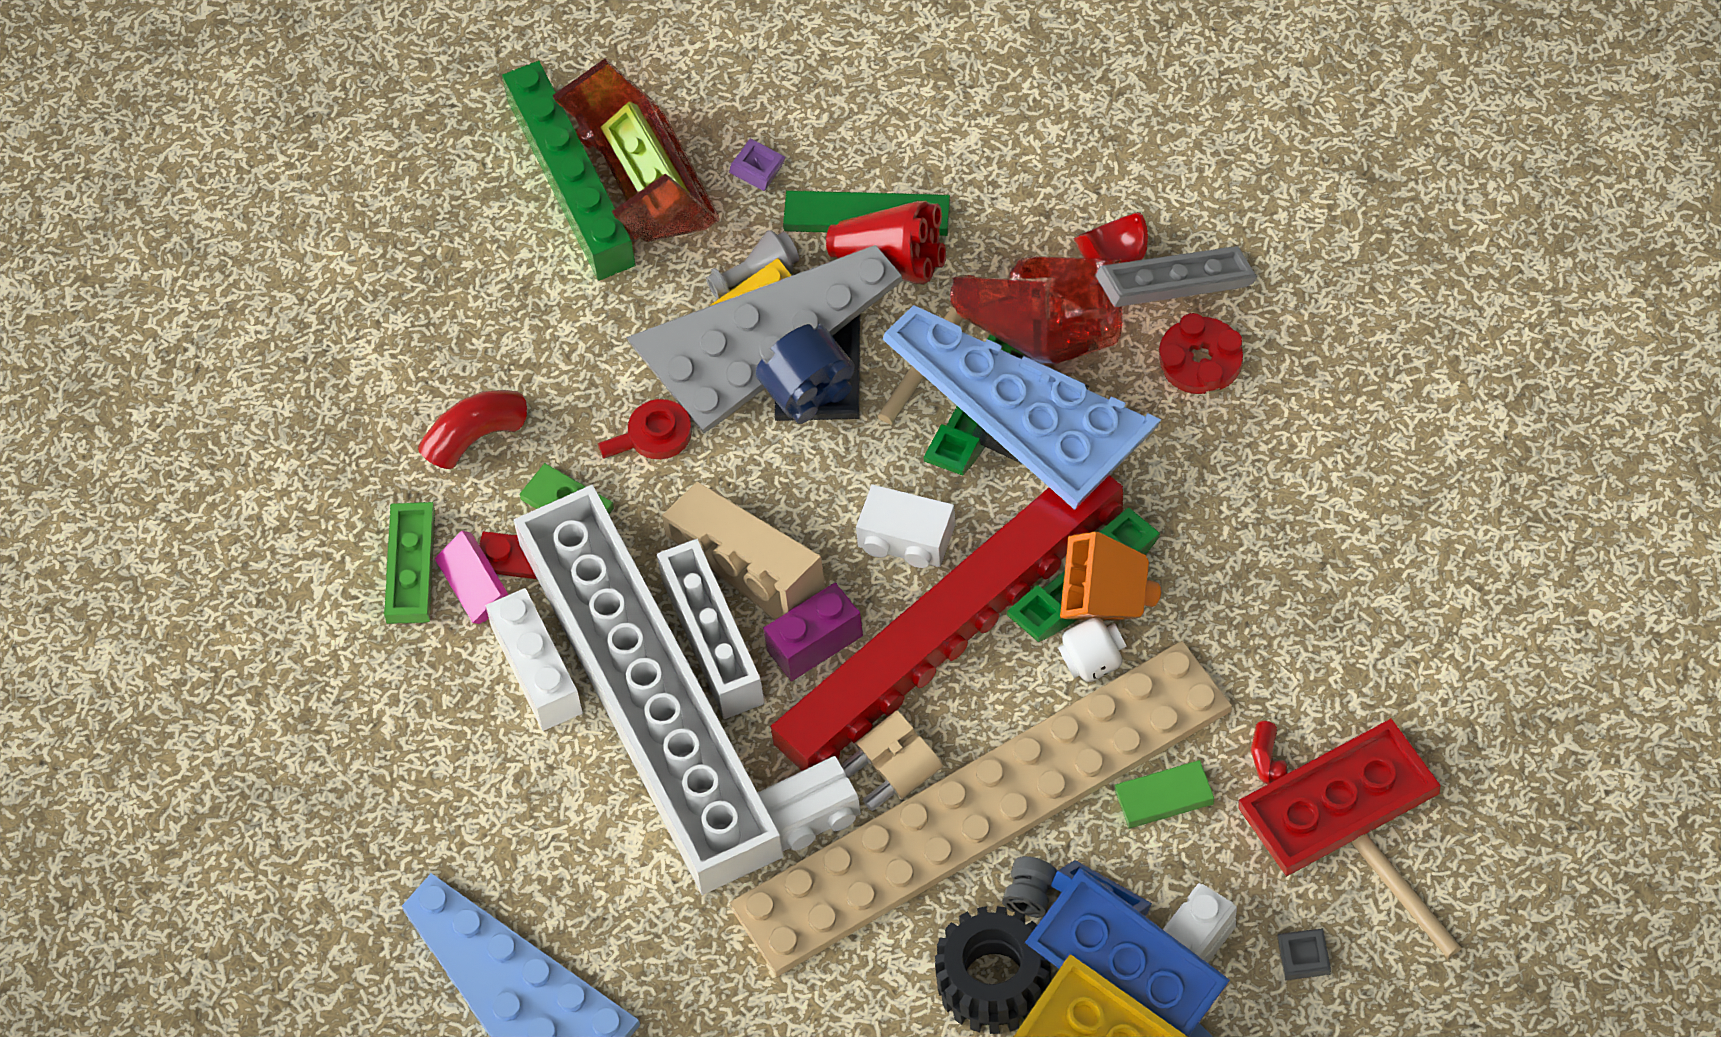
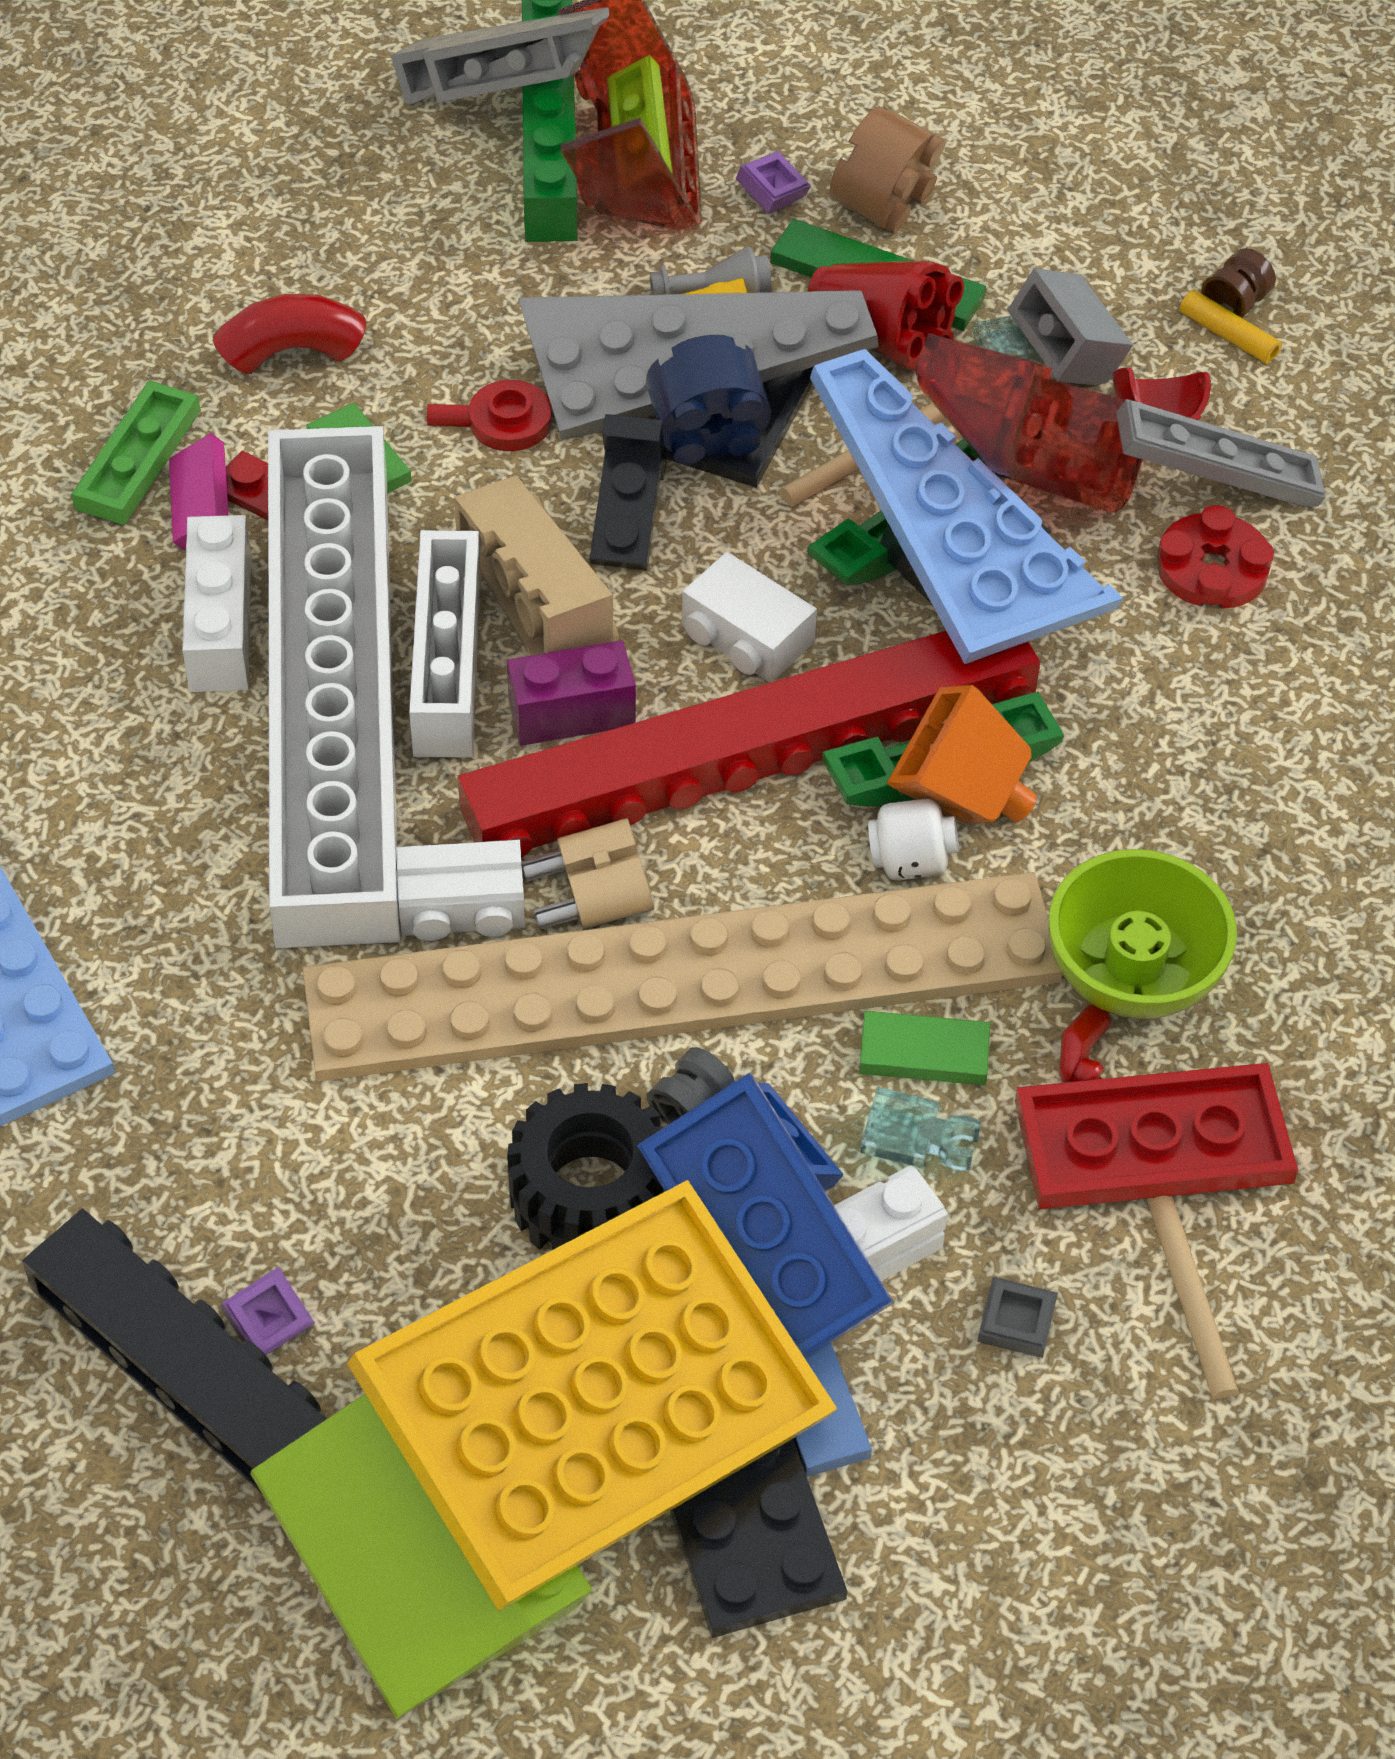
camera: 15 degrees right, 5 degrees down
(515, 144) = (496, 57): none -> light grey wedge
(779, 465) = (628, 491): none -> black bracket
(841, 128) = (887, 168): none -> medium nougat brick
(983, 234) = (1004, 337): none -> clear light blue tile
(1026, 210) = (1069, 327): none -> light grey brick
(1129, 123) = (1241, 281): none -> reddish brown wheel
(1134, 161) = (1230, 326): none -> yellow piece
(1179, 856) = (908, 1128): none -> clear light blue plate
(1286, 645) = (1141, 932): none -> lime piece

